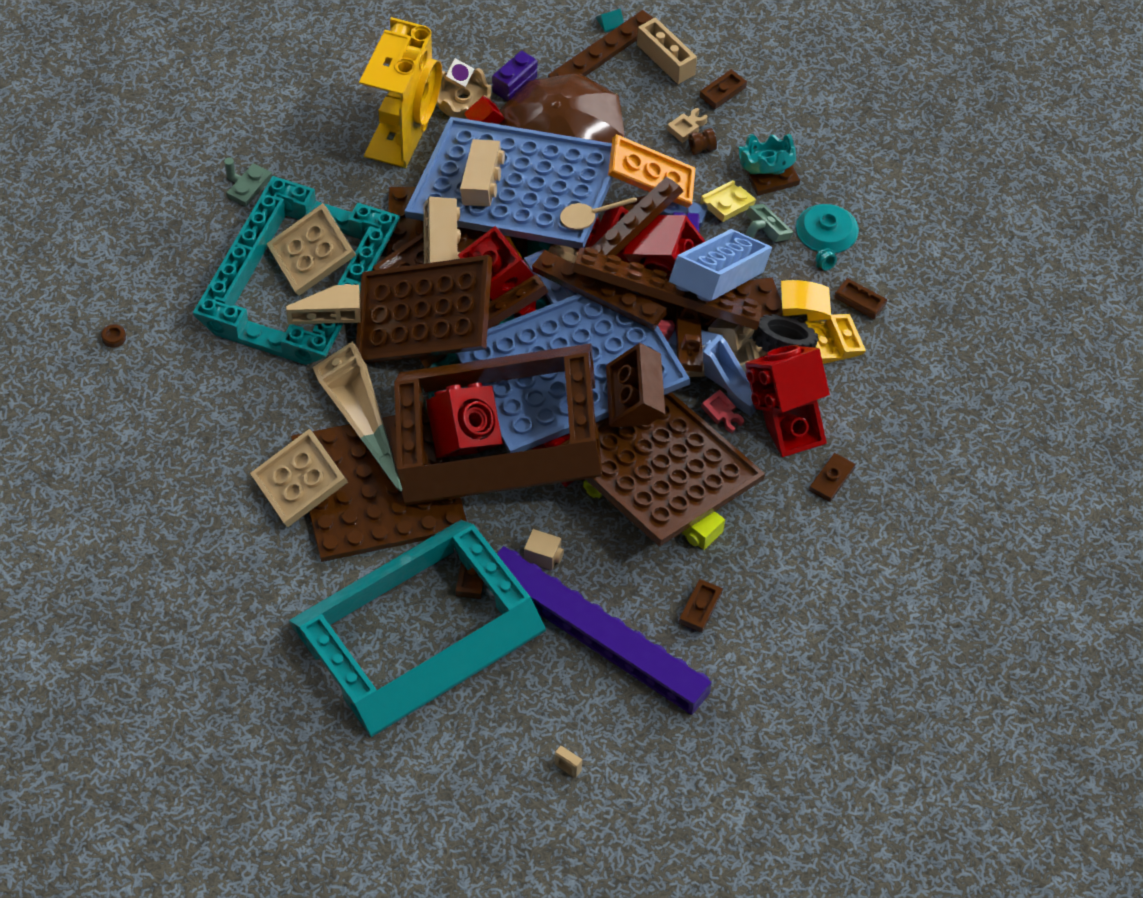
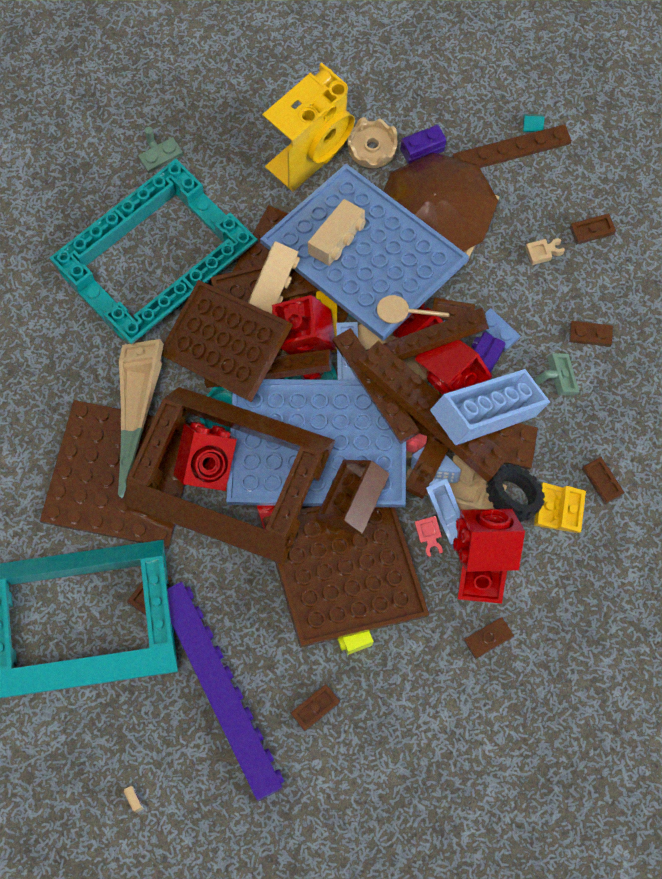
camera: 25 degrees right, 15 degrees up
(298, 477) = (55, 444): tan plate -> none
(311, 249) = (173, 238): tan plate -> none
(331, 305) = (154, 302): tan slope -> none
(459, 73) = (375, 125): tile -> none
(484, 111) = (378, 171): red brick -> none
(543, 549) = (215, 597): tan brick -> none
(647, 168) = (482, 288): light orange tile -> none
(666, 50) = (562, 173): tan brick -> none
(700, 141) = (548, 272): reddish brown wheel -> none
(727, 201) = (539, 338): light yellow plate -> none
(767, 157) = (588, 302): teal plate -> none
(806, 298) = (554, 462): yellow slope -> none
(826, 259) = (593, 429): teal plate -> none
(827, 227) = (611, 399): teal piece -> none

